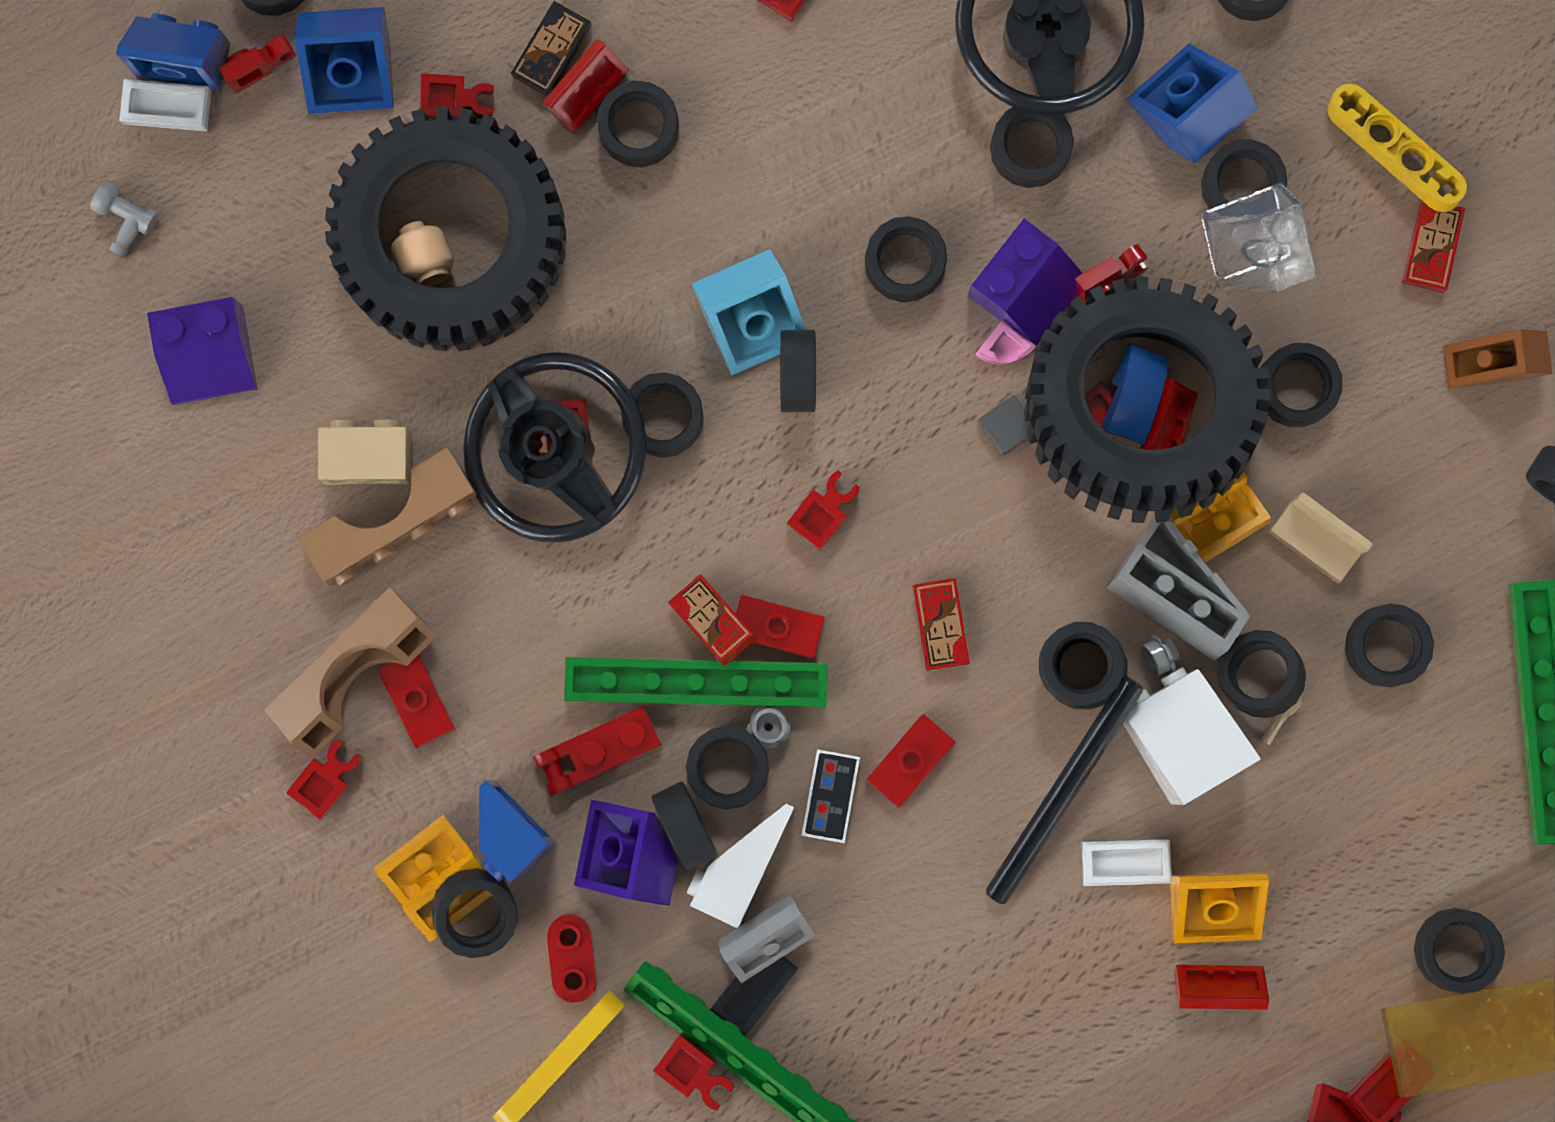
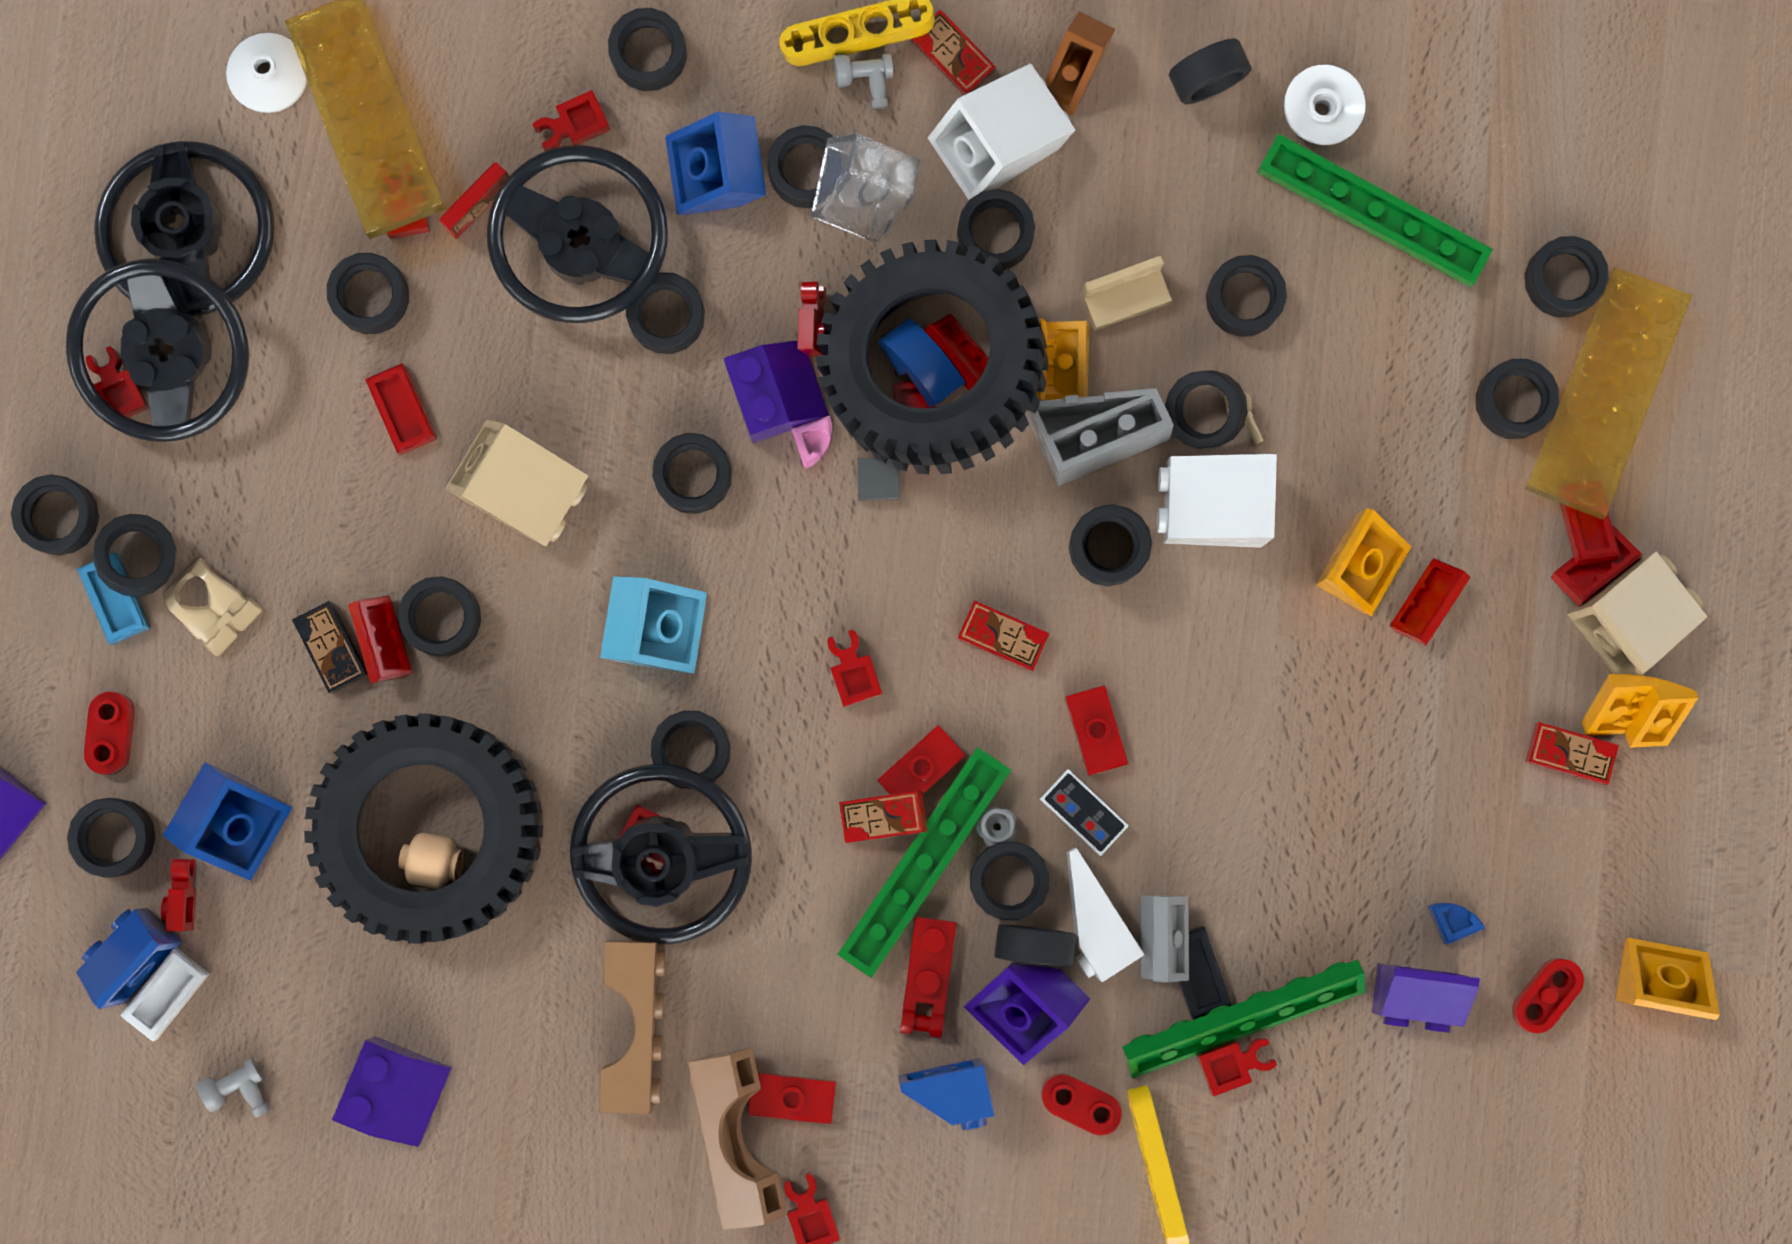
camera: 65 degrees left, 0 degrees up
(364, 453) = (565, 1013): tan brick -> none
(422, 866) = (947, 1173): light orange slope -> none
(449, 92) = (312, 754): red plate -> none
(483, 944) = (1026, 1161): black tyre -> none
(797, 370) = (727, 617): black tyre -> none
(798, 115) = (518, 482): none -> tan slope
(1064, 790) = (1199, 624): black axle -> none
(1126, 862) = (1284, 612): white tile -> none
(1160, 655) = (1139, 478): light grey plate -> none
(1372, 187) = (876, 70): none -> light grey piece
(1391, 331) = (1000, 131): none -> white slope

